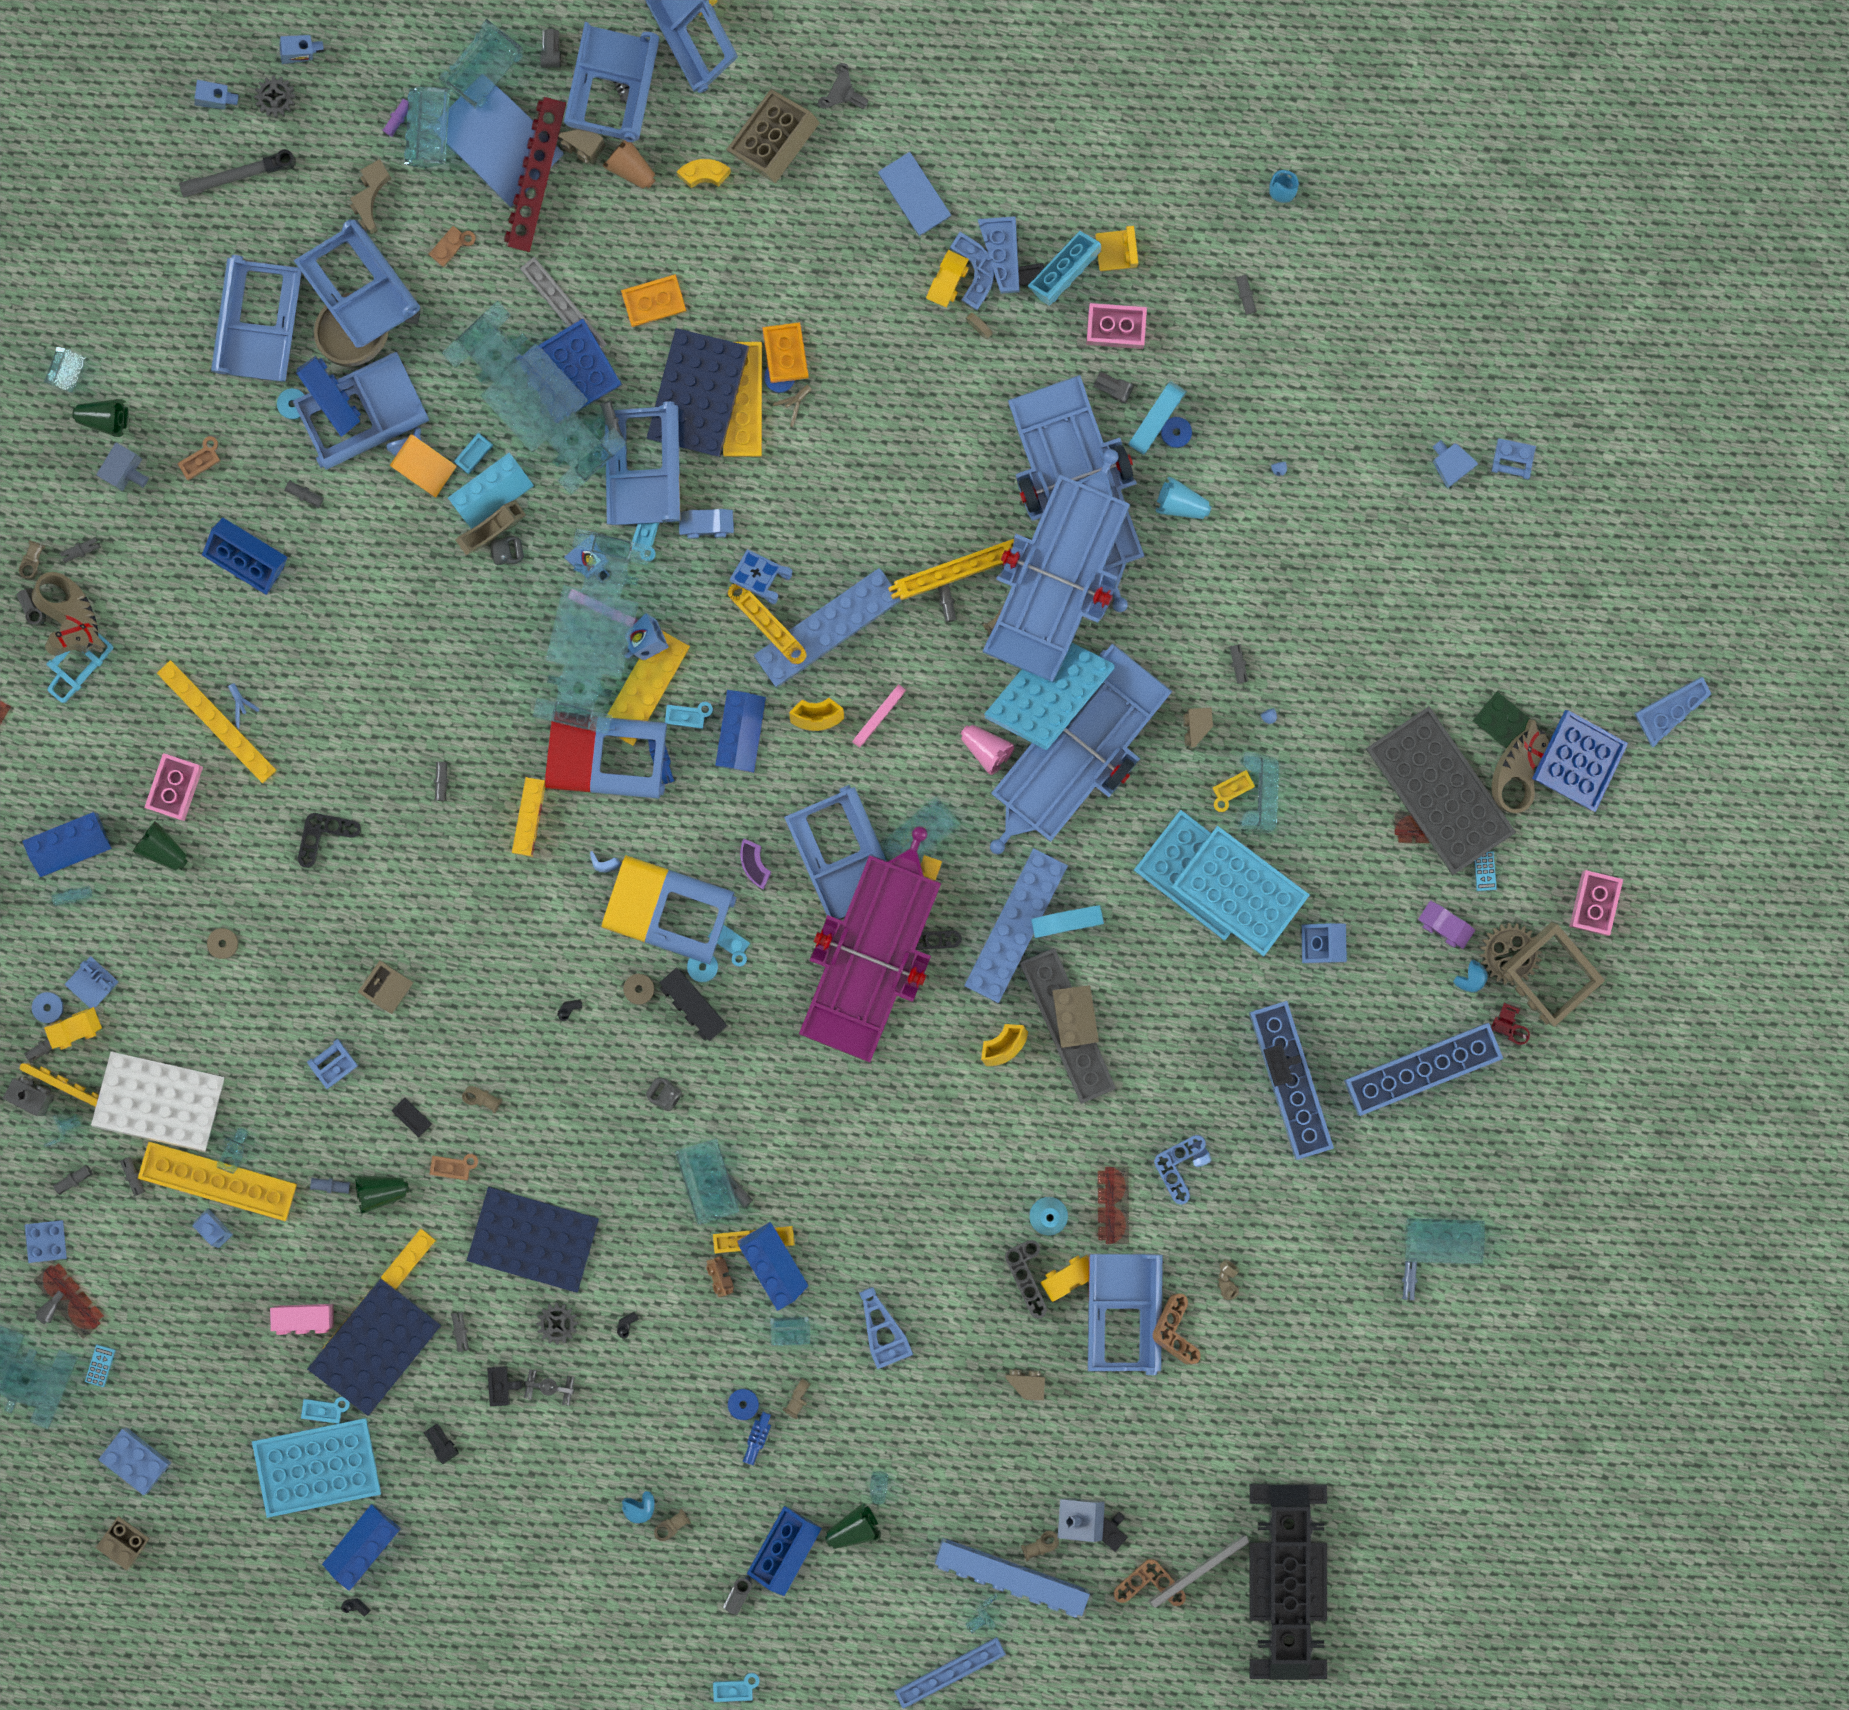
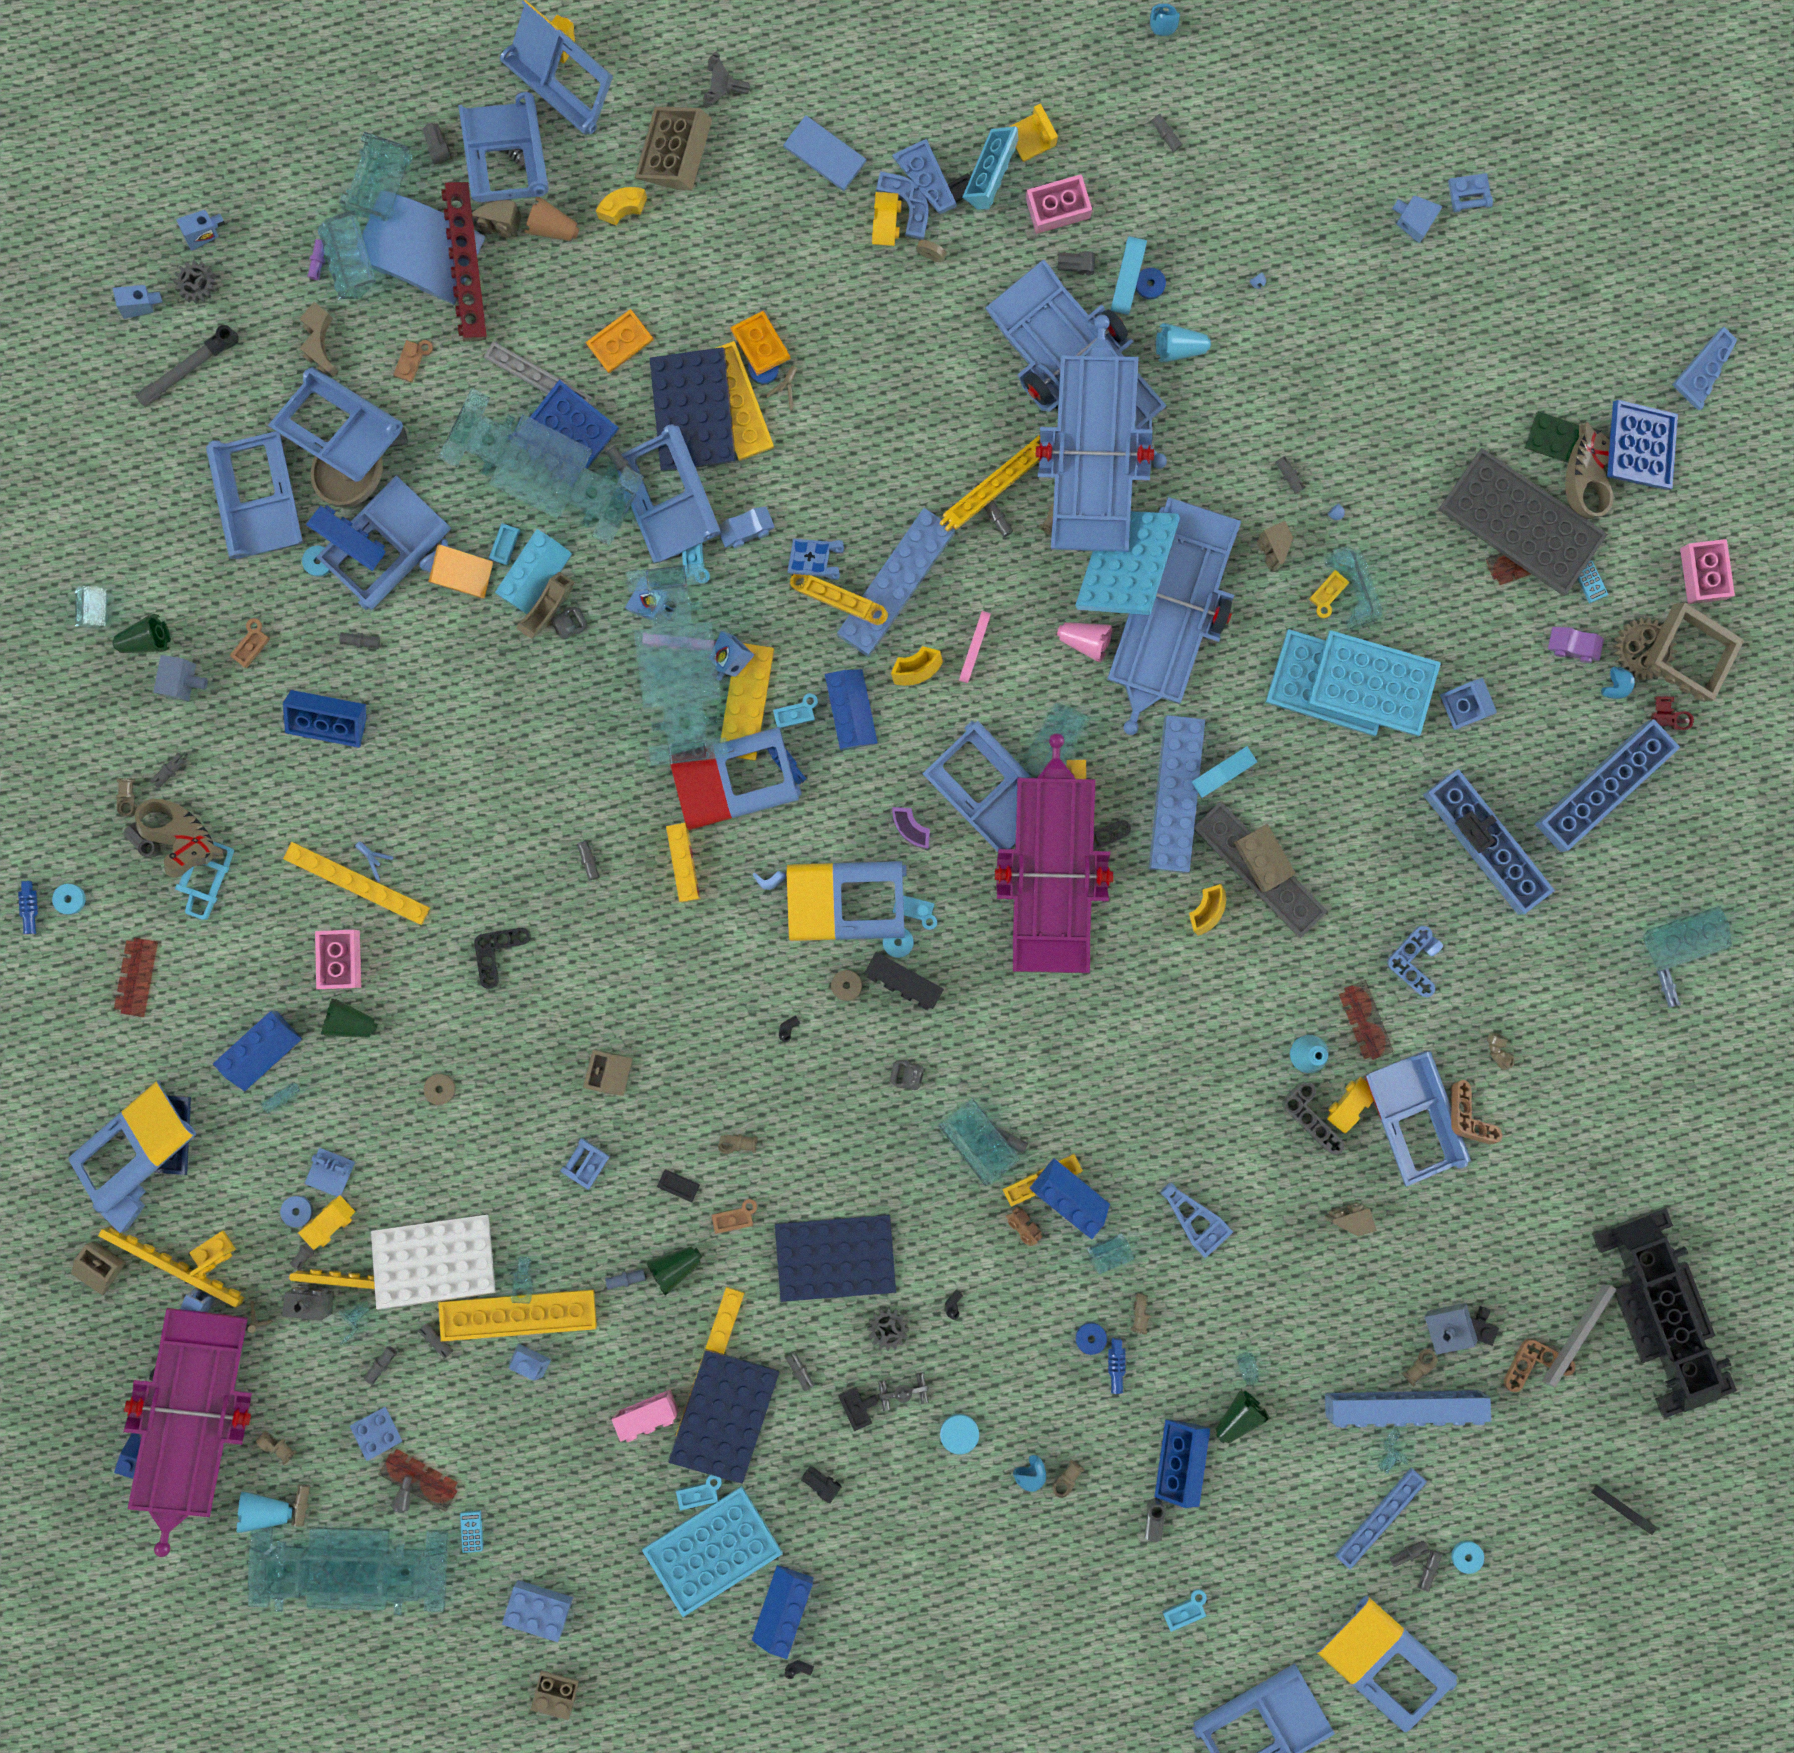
camera: 20 degrees left, 0 degrees up
(586, 1446) = (959, 1434): none -> medium azure tile

